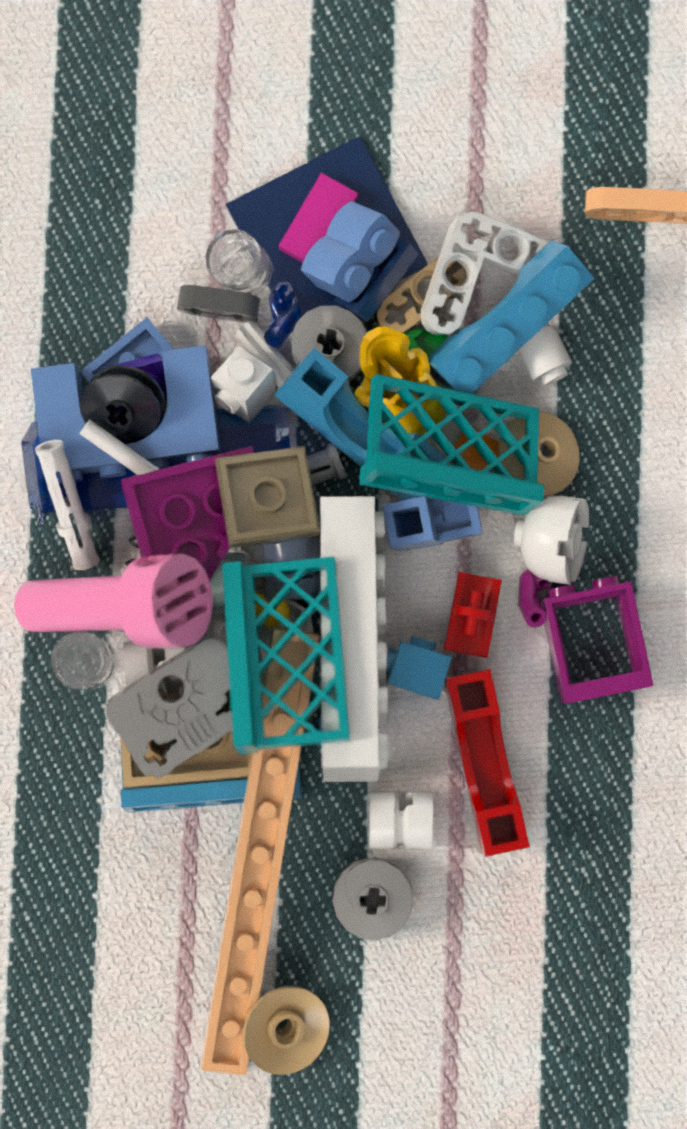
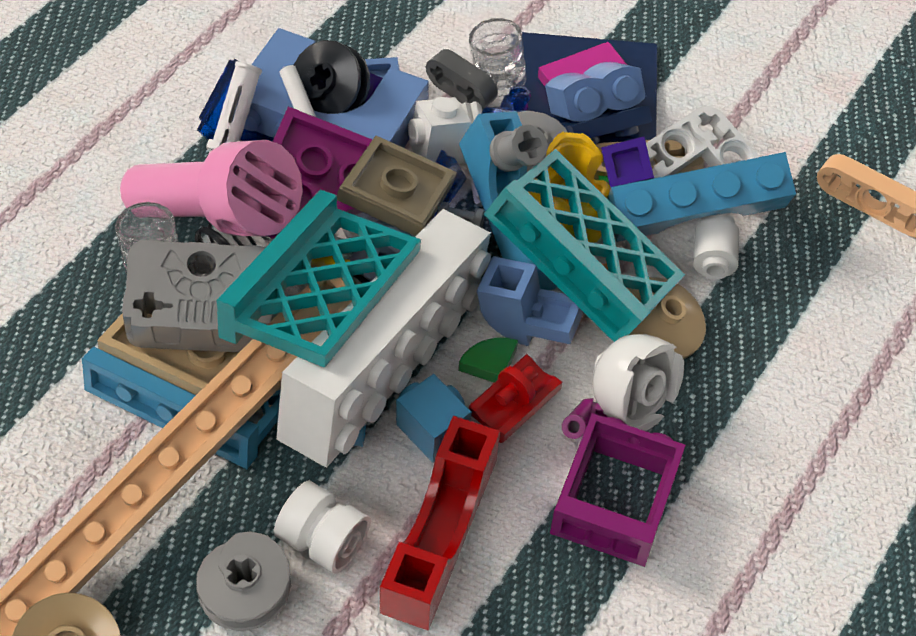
camera: 25 degrees right, 30 degrees down
(340, 404) = (518, 148): none -> light grey bush
(424, 581) = (488, 358): none -> green tile
(435, 333) = (627, 162): none -> dark purple plate

